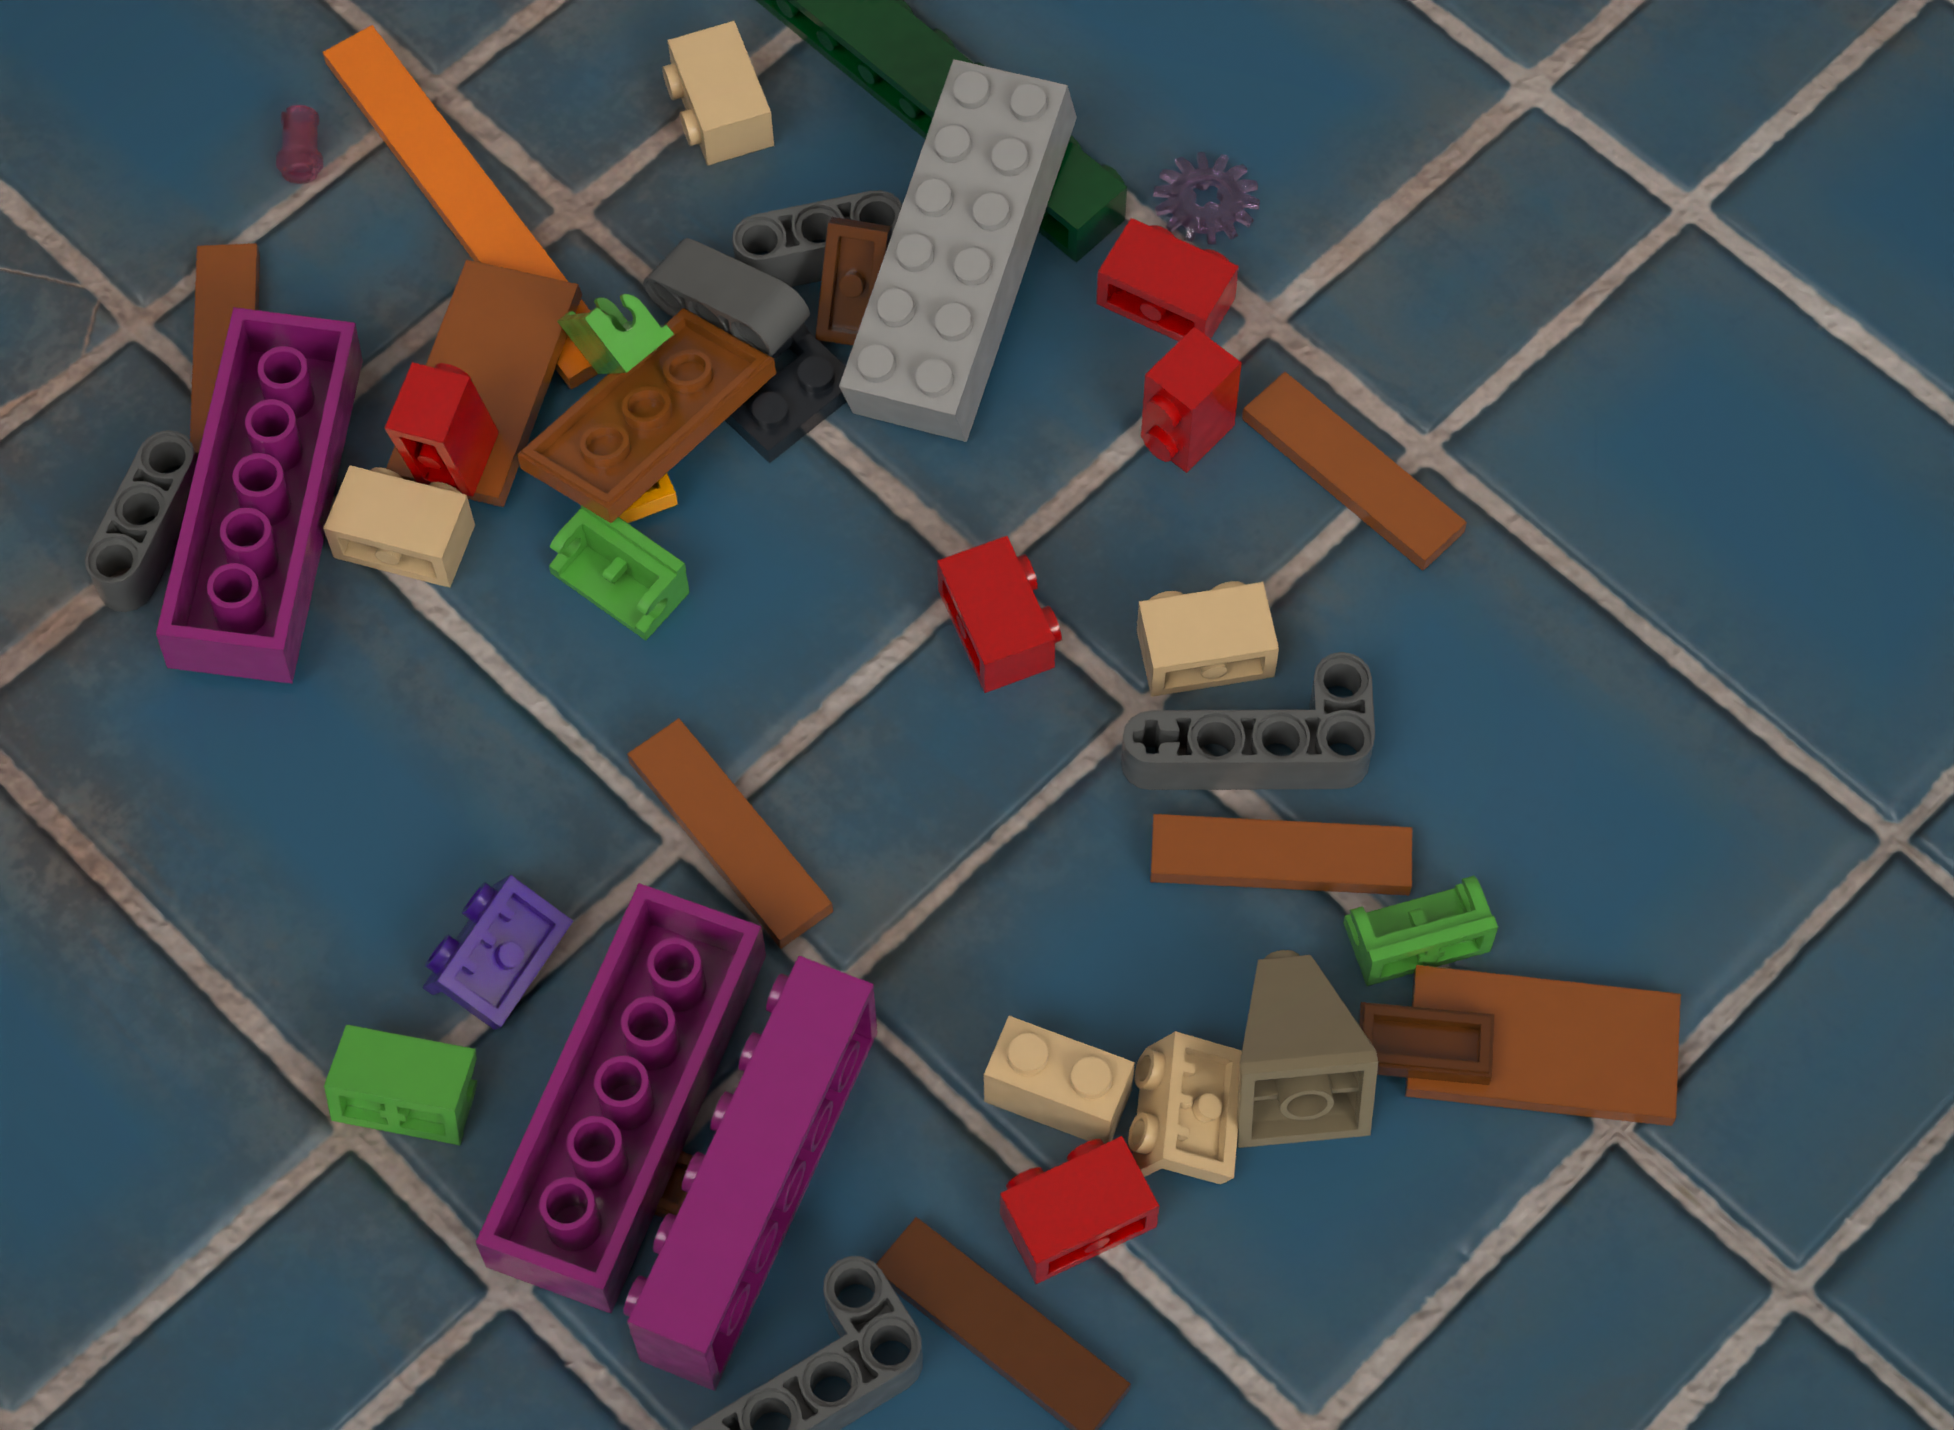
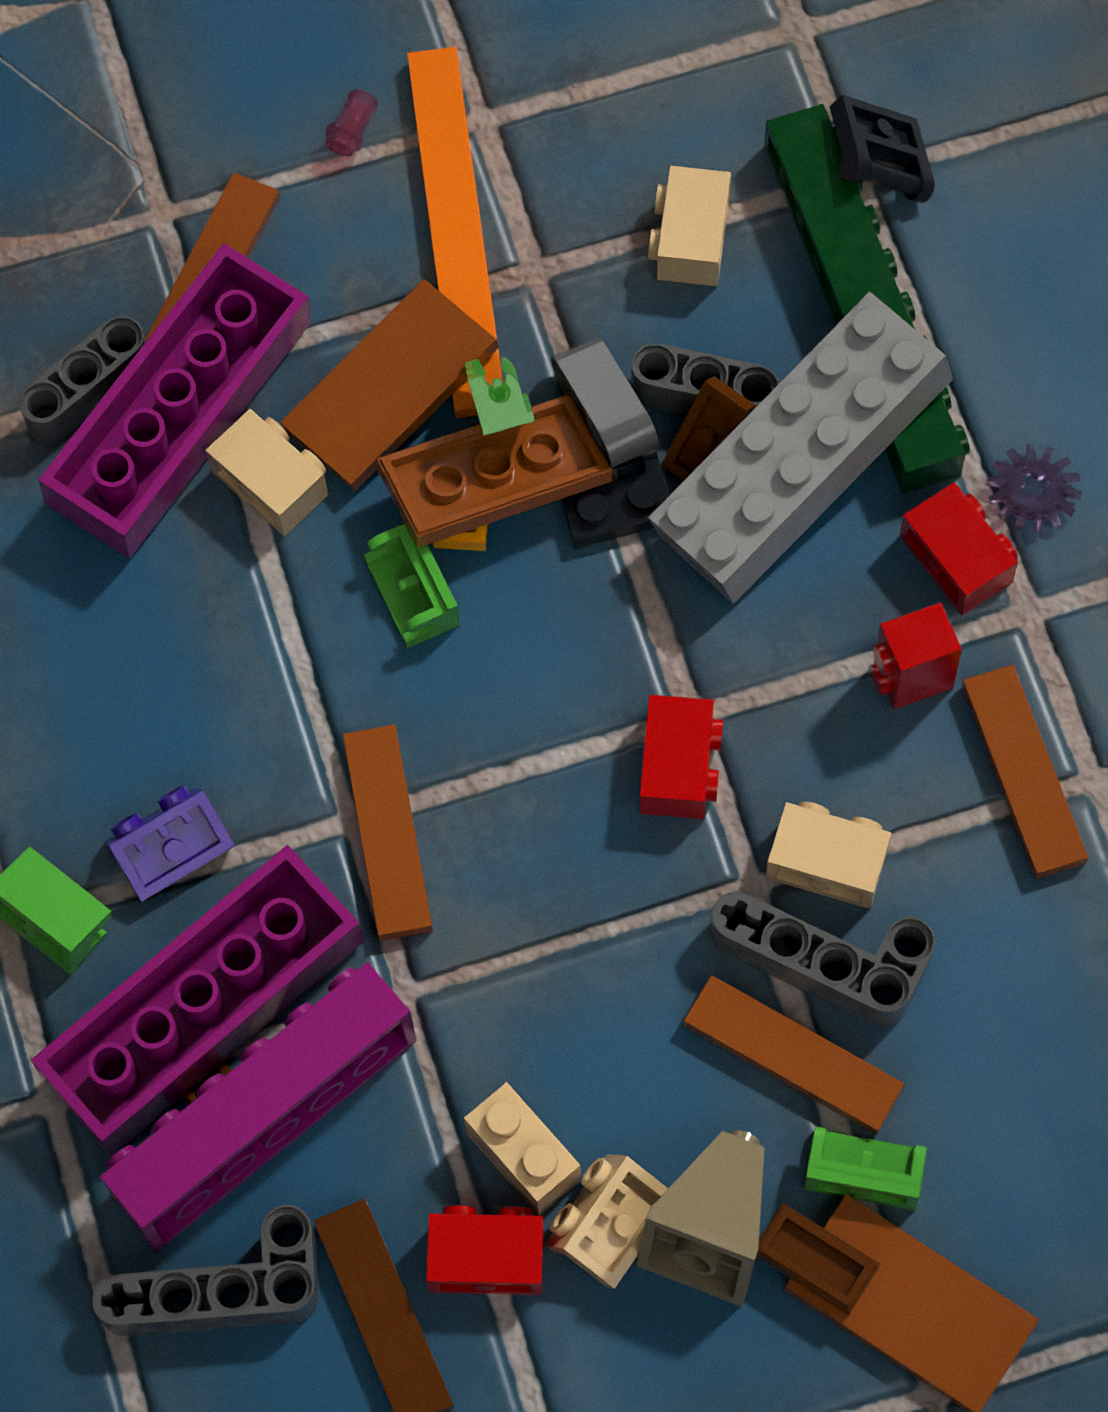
camera: 30 degrees right, 5 degrees up
(442, 427) = (328, 413): red brick -> none

